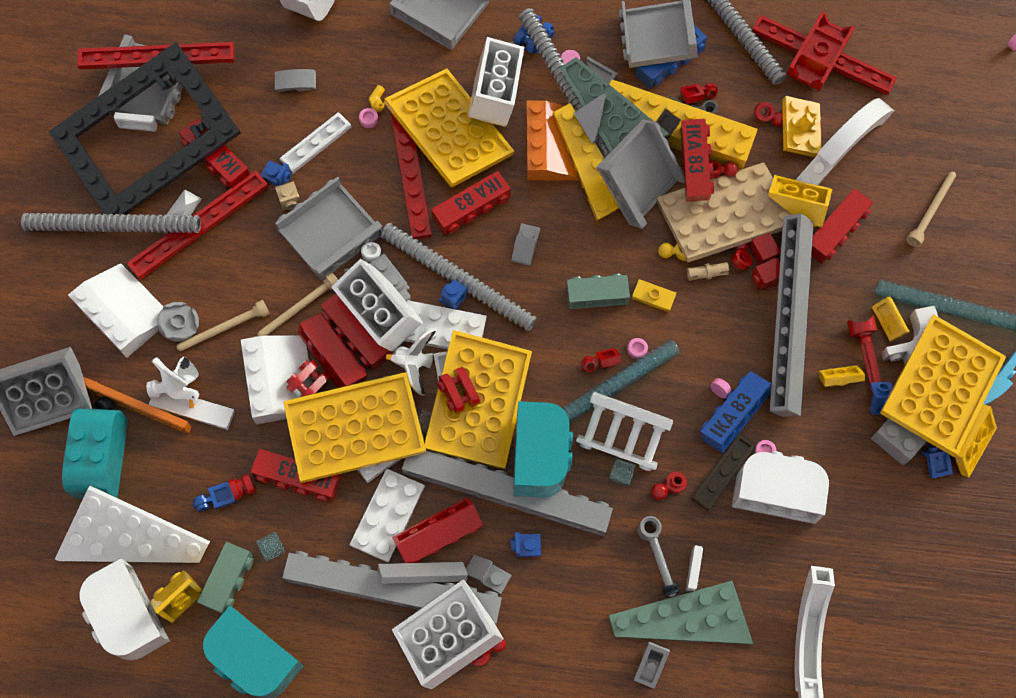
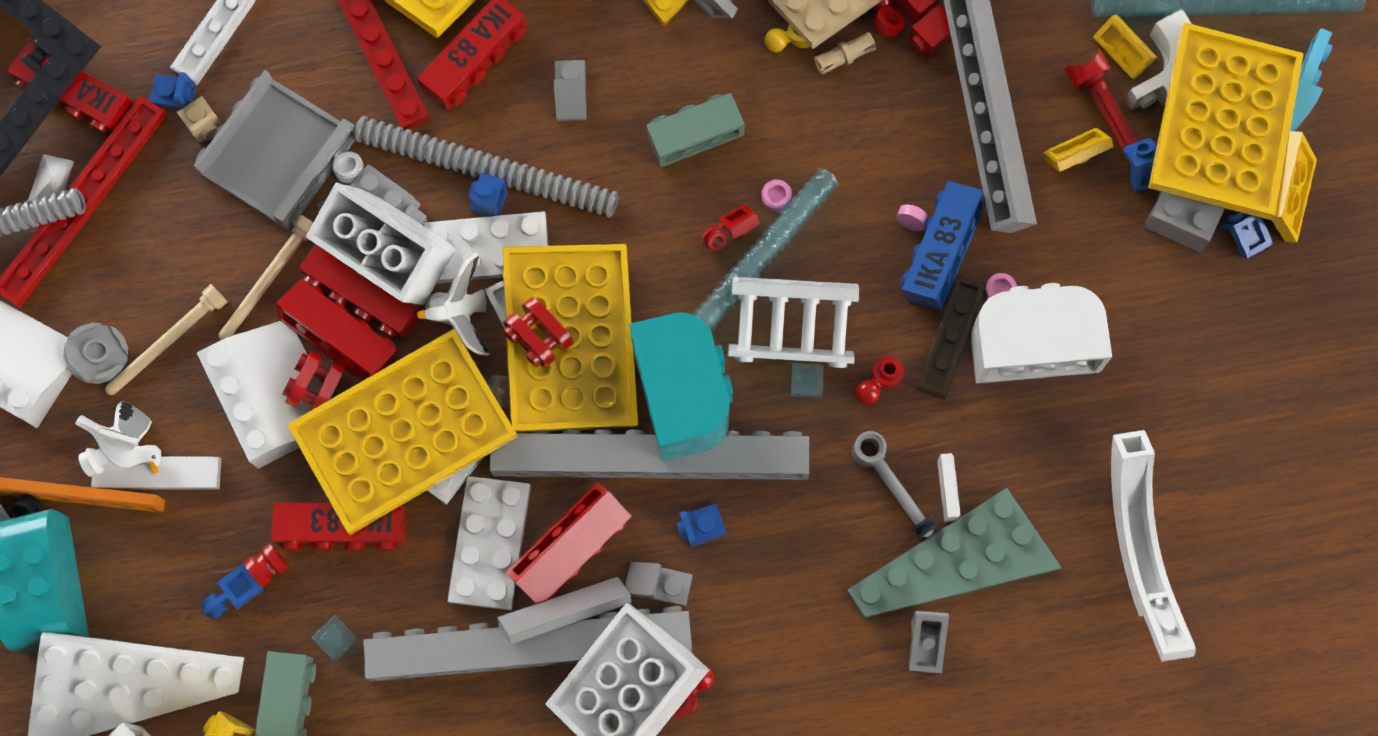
camera: 10 degrees left, 5 degrees up
(654, 295) = (778, 111): yellow plate -> none

